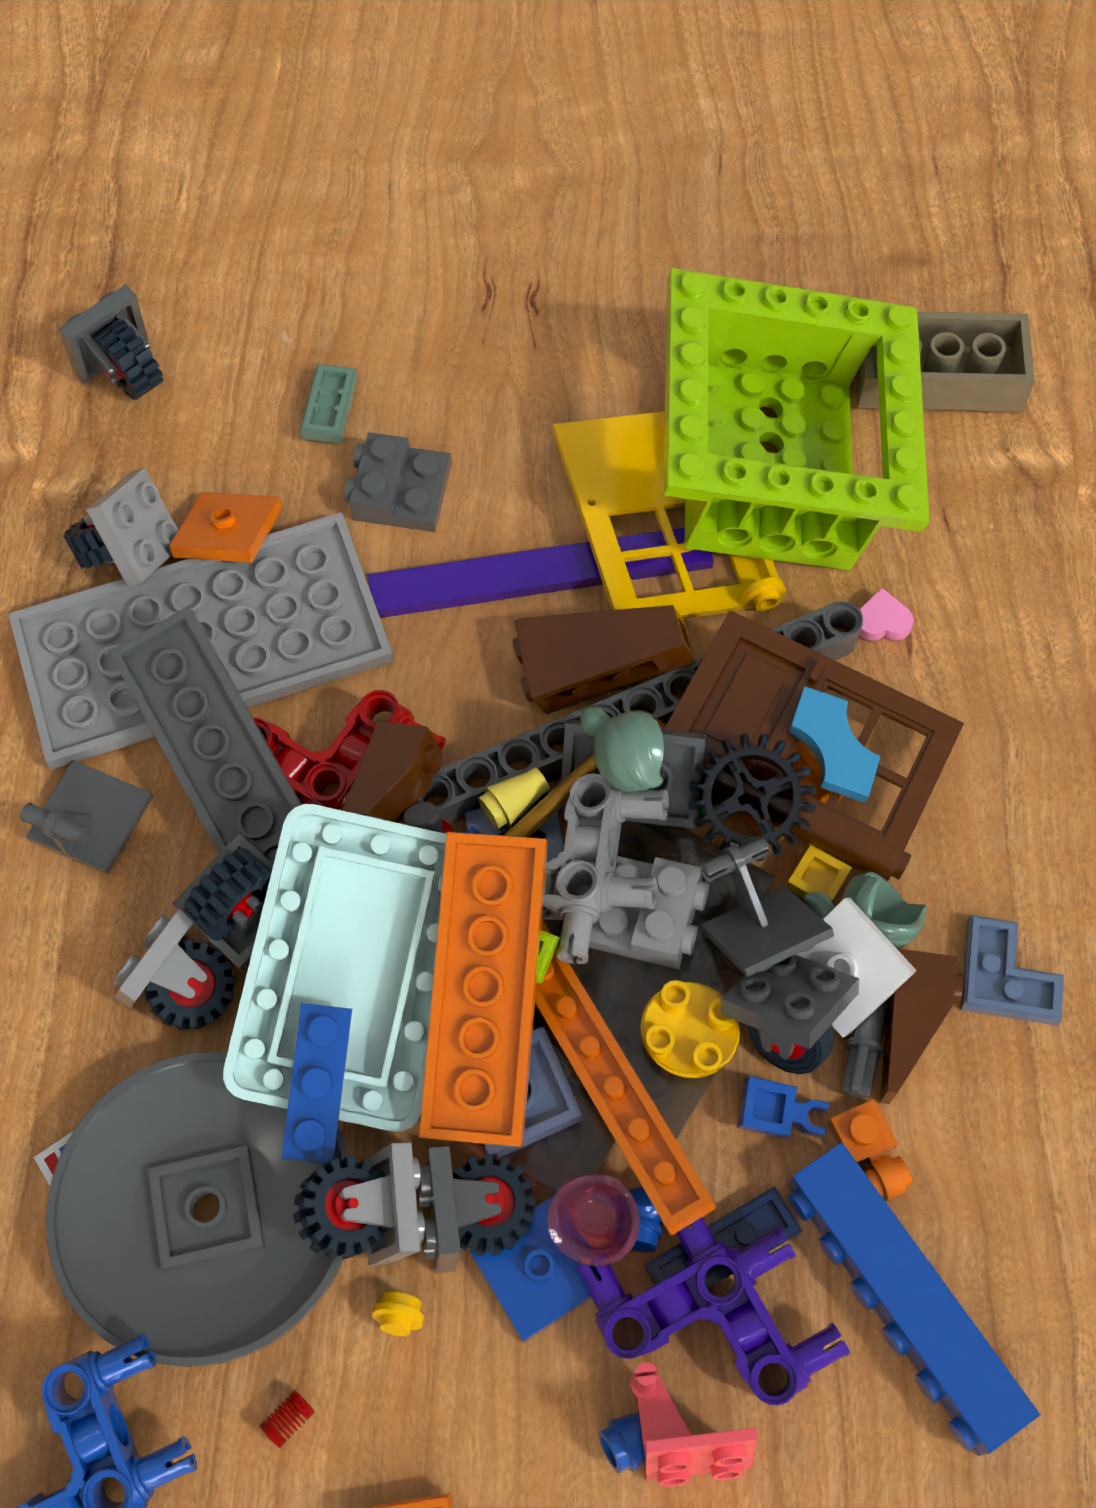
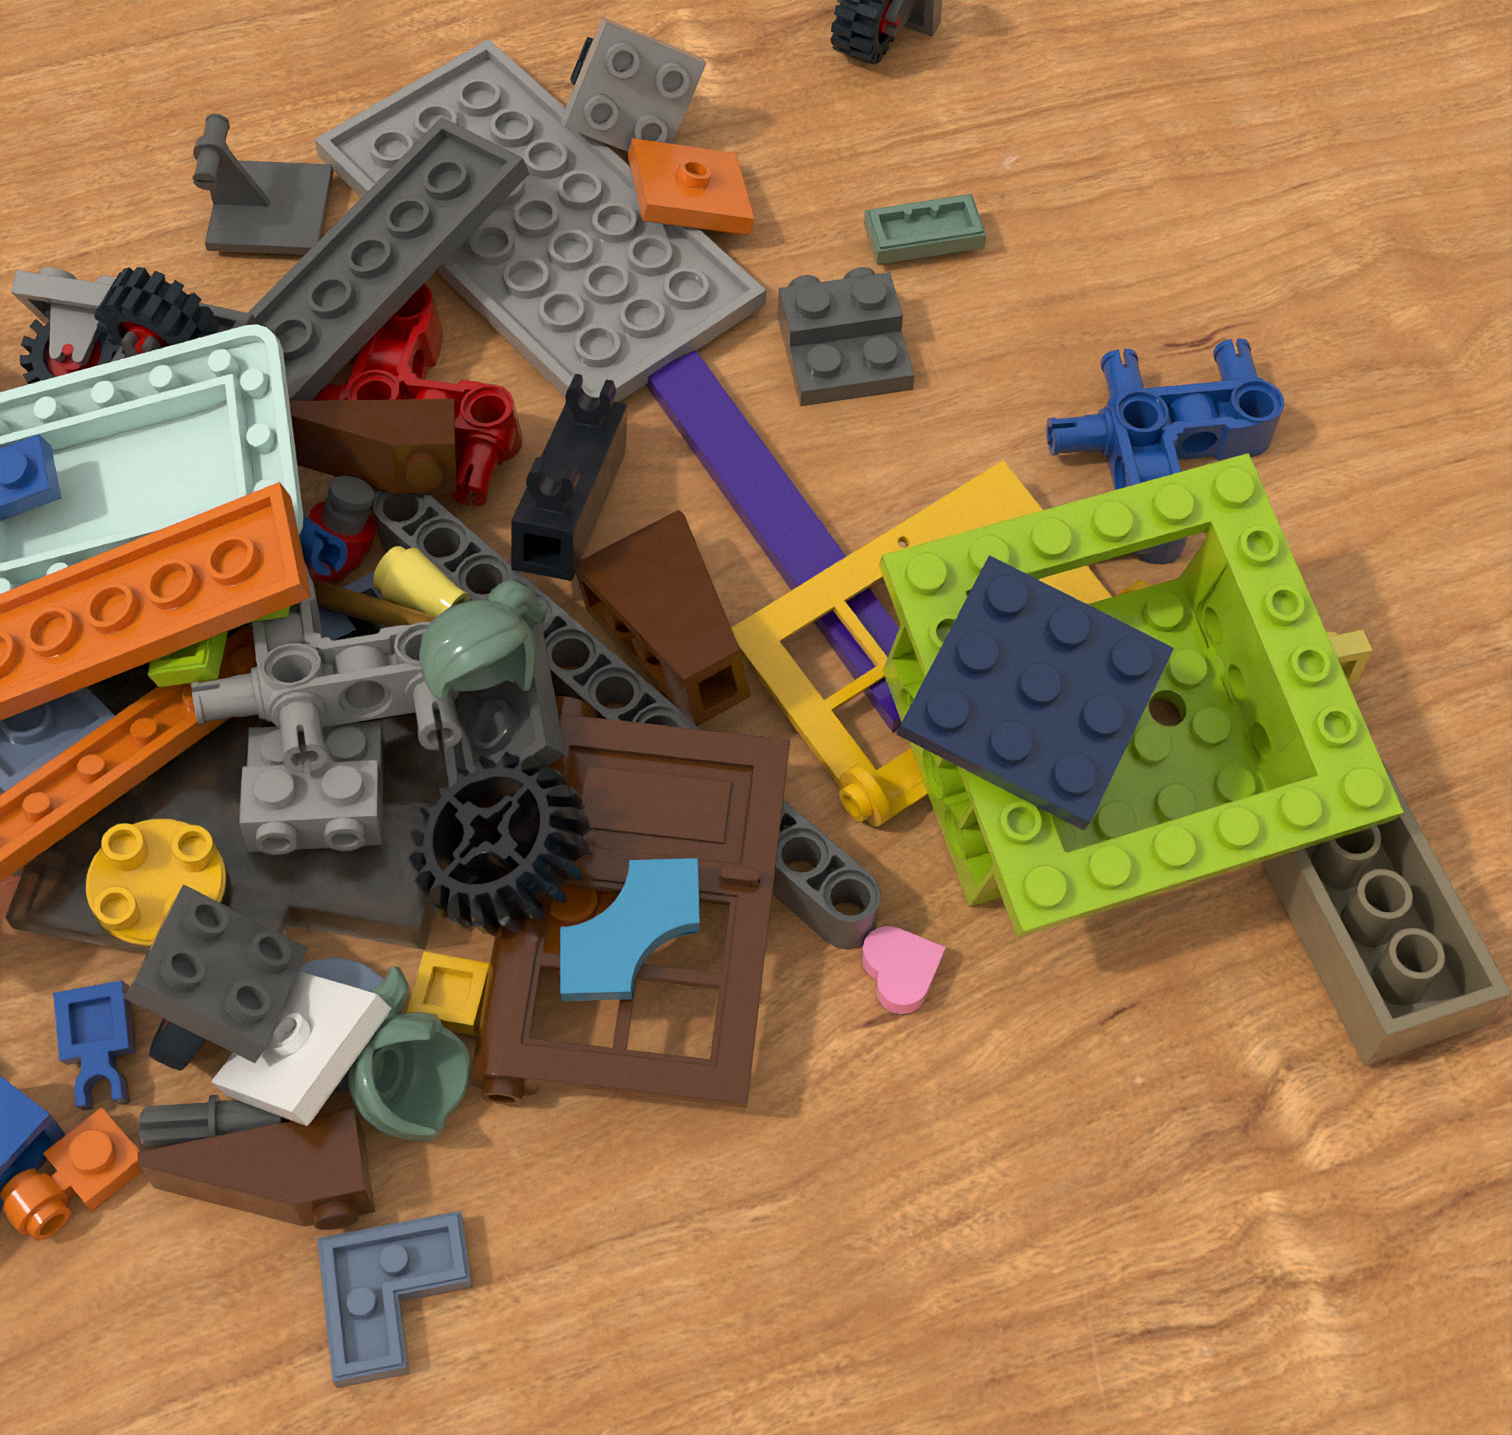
camera: 65 degrees right, 5 degrees down
(467, 677) = (569, 483): none -> black brick
(565, 348) = (1156, 426): none -> blue pin
(762, 927) = (318, 918): dark grey plate -> none
(795, 443) = (1036, 692): none -> dark blue plate

